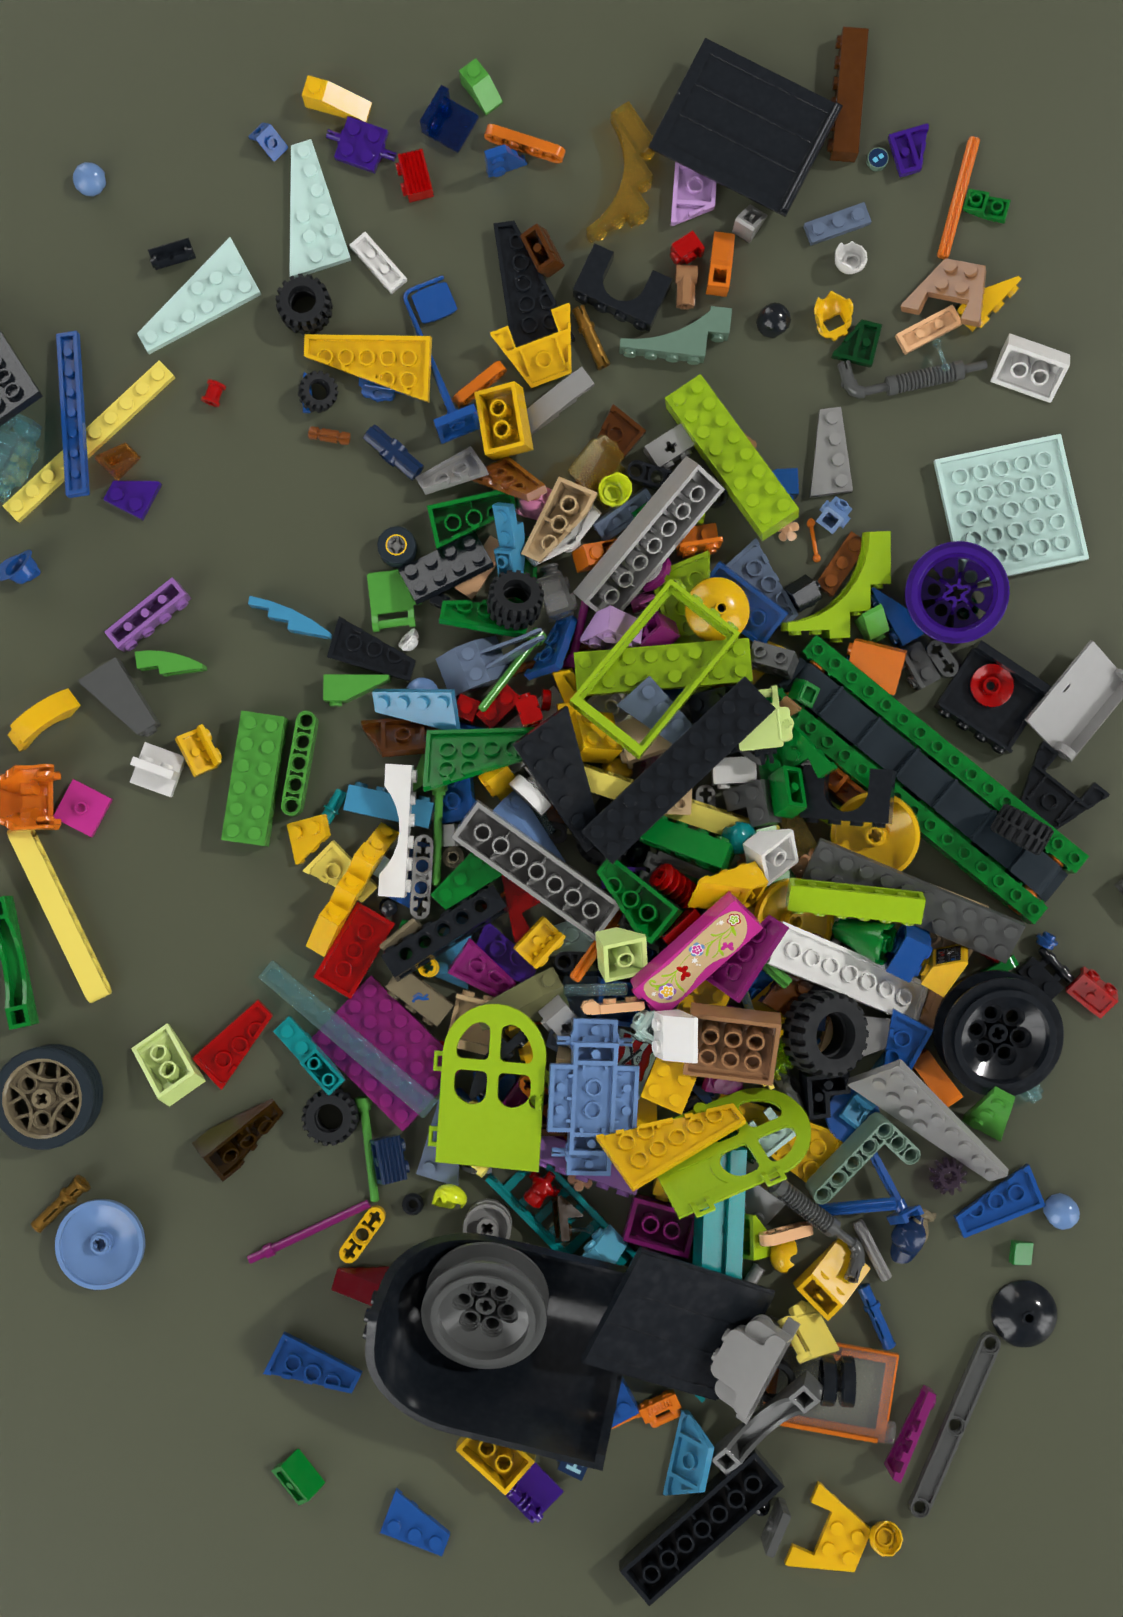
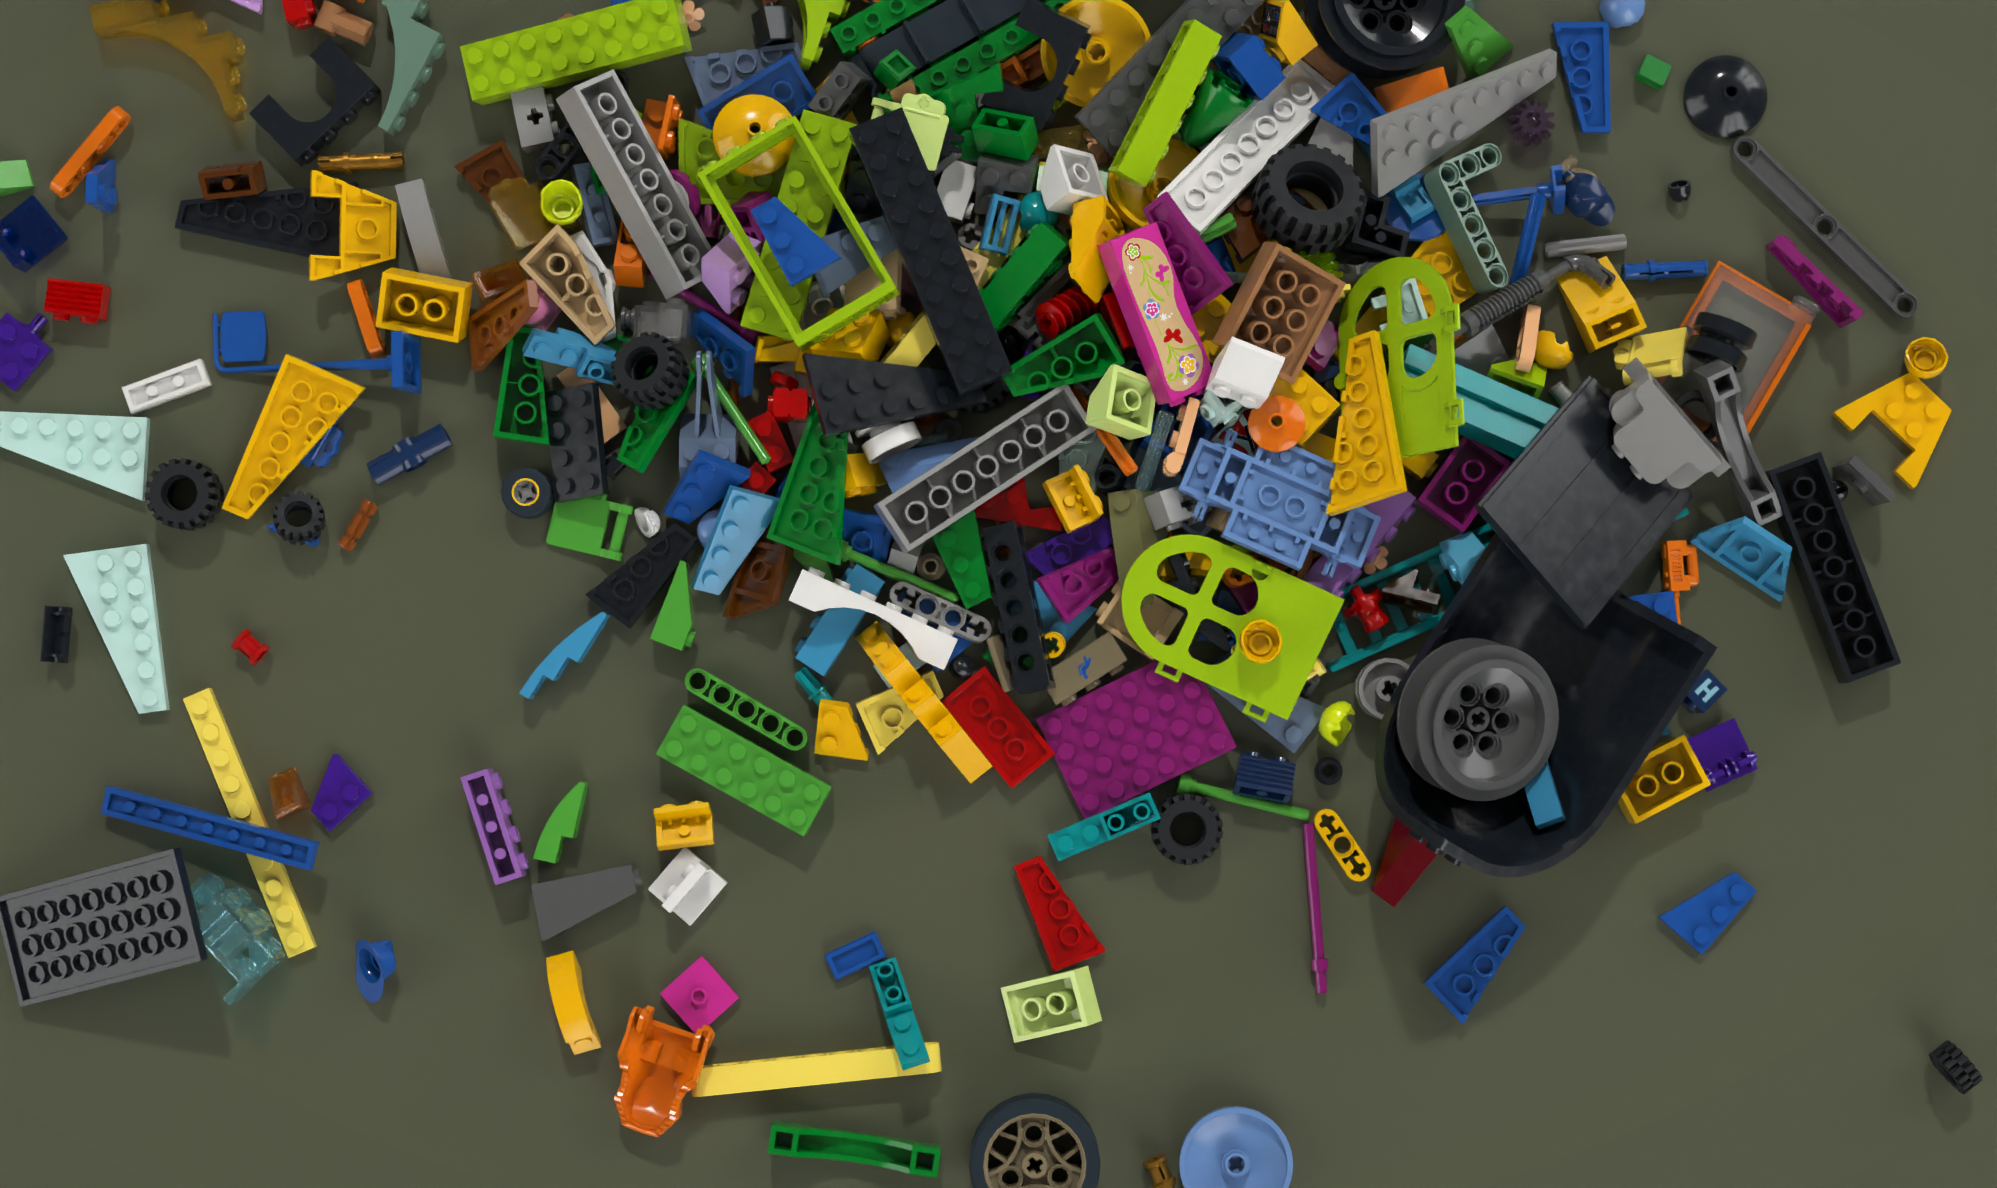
camera: 70 degrees left, 0 degrees up
(118, 957) = (899, 1013): none -> teal slope
(152, 909) = (855, 955): none -> blue tile
(230, 1142) = (1171, 962): dark brown wedge -> none
(298, 1477) = (1602, 1028): green panel -> none
(348, 1039) = (1101, 771): clear light blue plate -> none
(444, 1377) = (1544, 799): none -> dark azure tile
(448, 670) = (703, 486): none -> blue wing
(453, 471) = (461, 390): light grey wing -> none
(483, 1121) = (1260, 641): none -> yellow hair
(542, 467) = (498, 280): none -> clear orange slope
(637, 1073) = (1280, 437): none -> orange dish
(645, 666) = (792, 242): none -> blue wing
(735, 802) = (989, 222): none -> dark azure tile
(940, 1305) = (1679, 190): none -> black hinge

